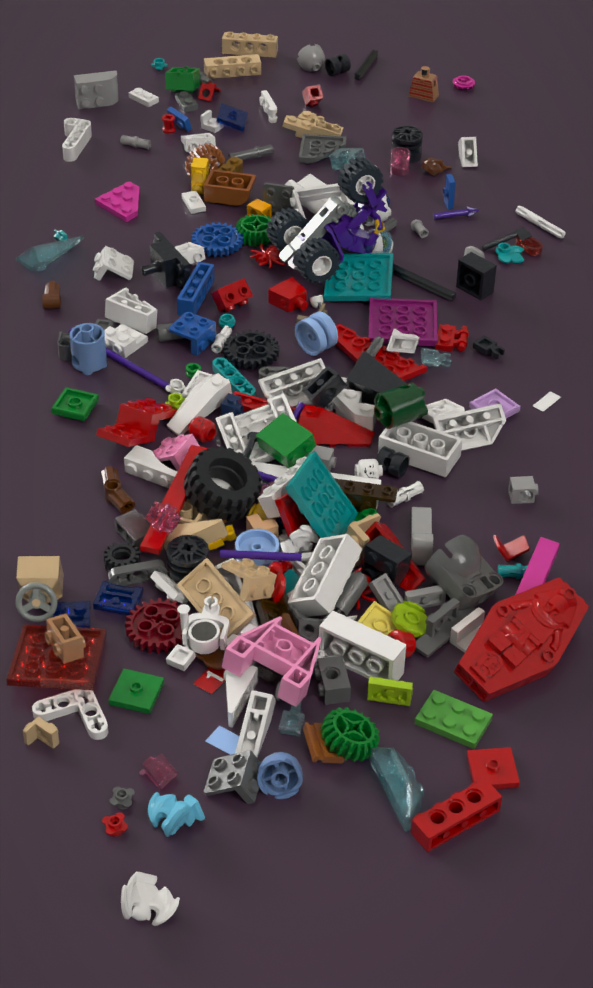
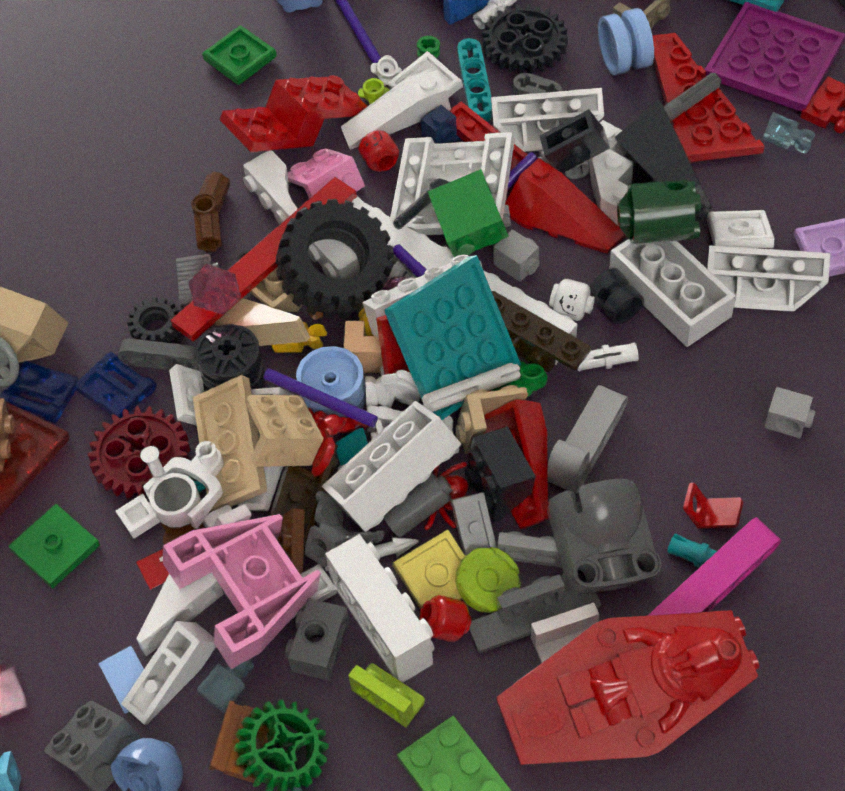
camera: 30 degrees right, 15 degrees up
(341, 527) = (458, 391): none -> white axle
(402, 342) = (747, 94): white slope -> none

